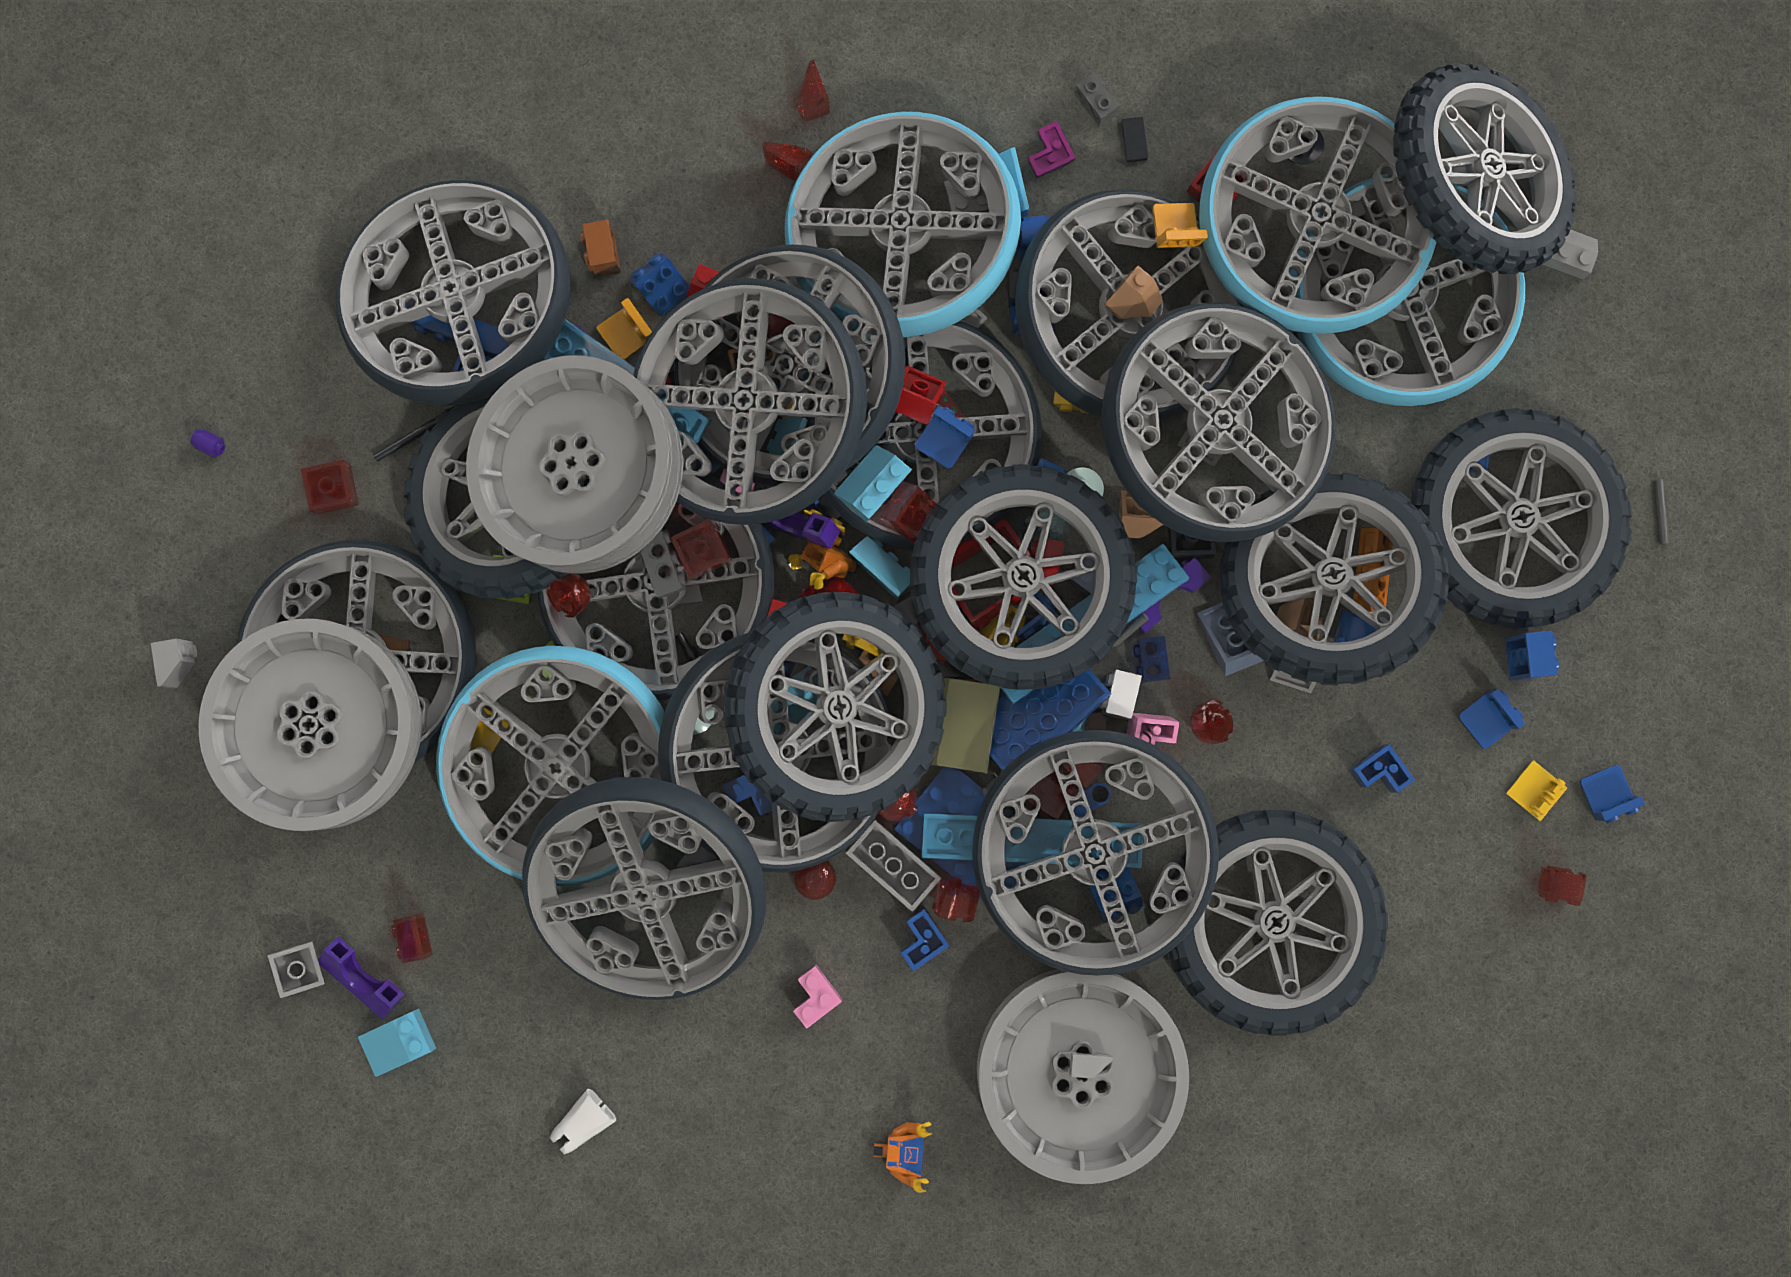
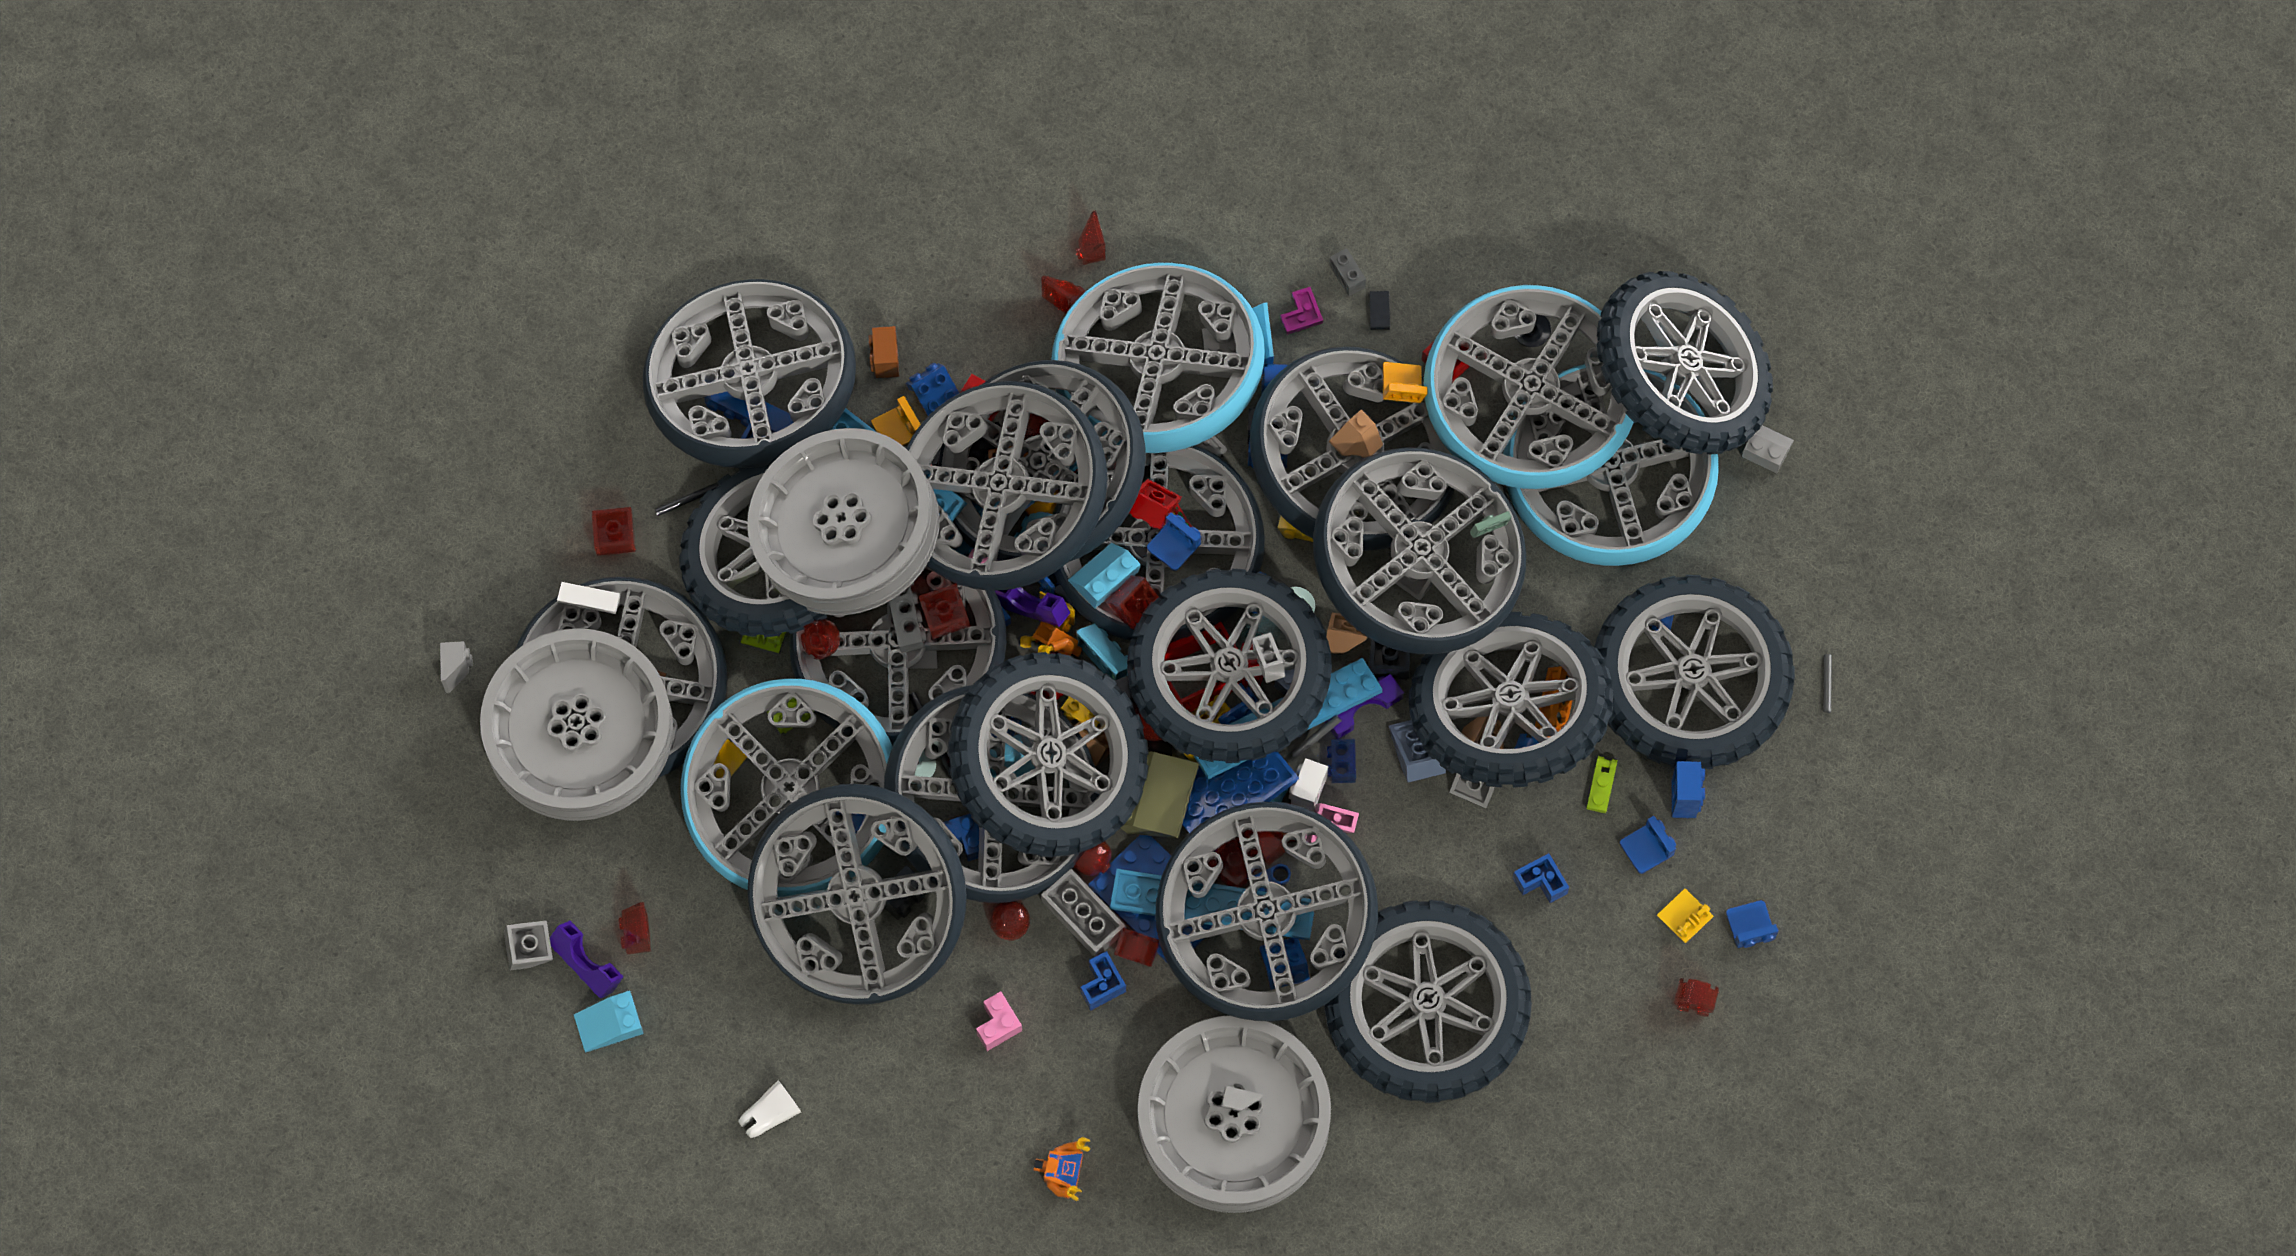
camera: 10 degrees right, 15 degrees down
(208, 443) = (508, 483): dark purple brick -> none
(308, 572) = (588, 598): none -> white tile
(1069, 571) = (1268, 657): none -> light grey brick
(1211, 722) = (1389, 819): clear red cylinder -> none
(1294, 383) = (1490, 523): none -> sand green plate
(1433, 657) = (1601, 785): none -> lime plate

